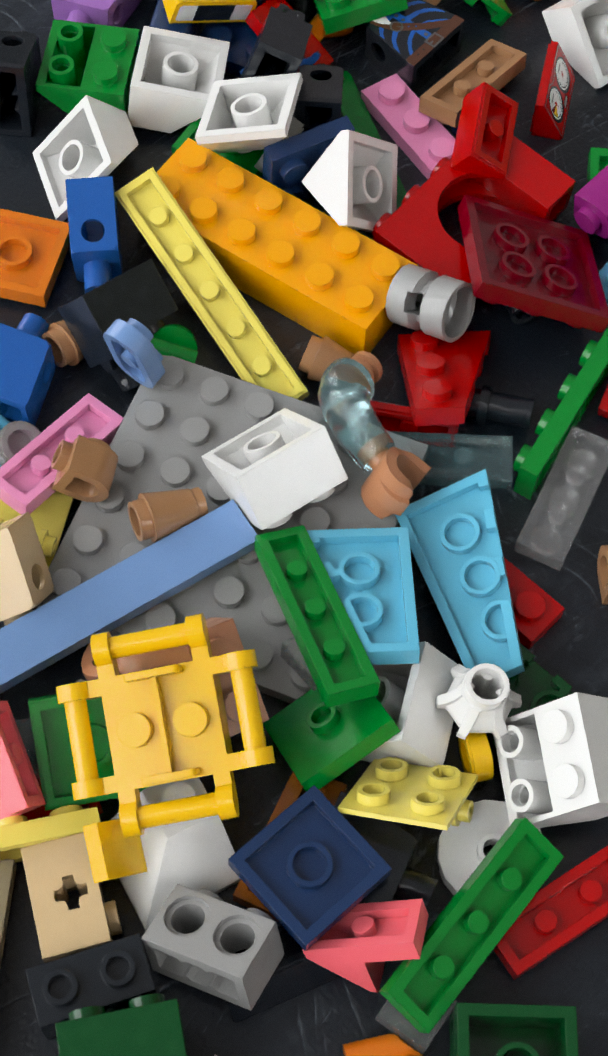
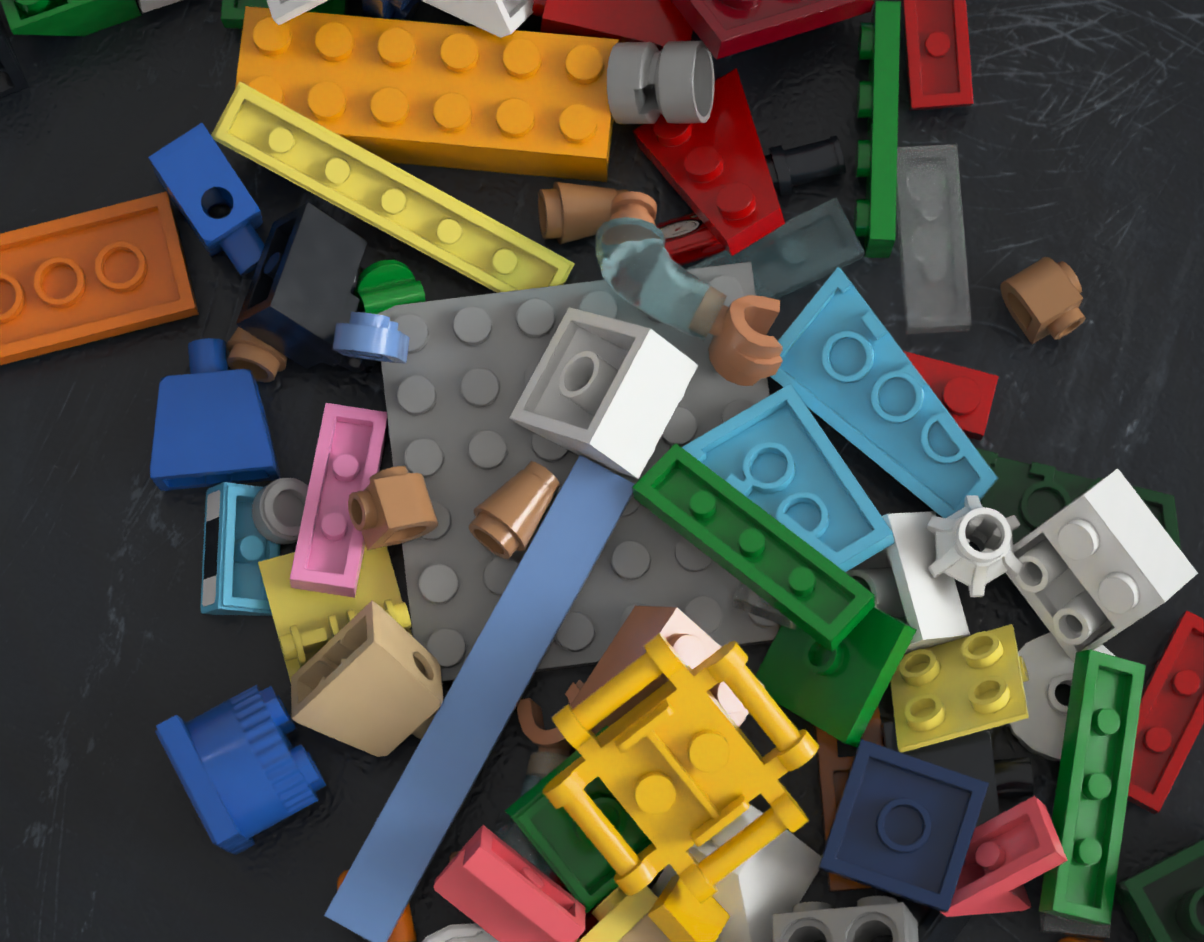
camera: 25 degrees left, 15 degrees up
(83, 145) = (123, 89): white slope -> none
(477, 756) = (998, 603): yellow tile -> none

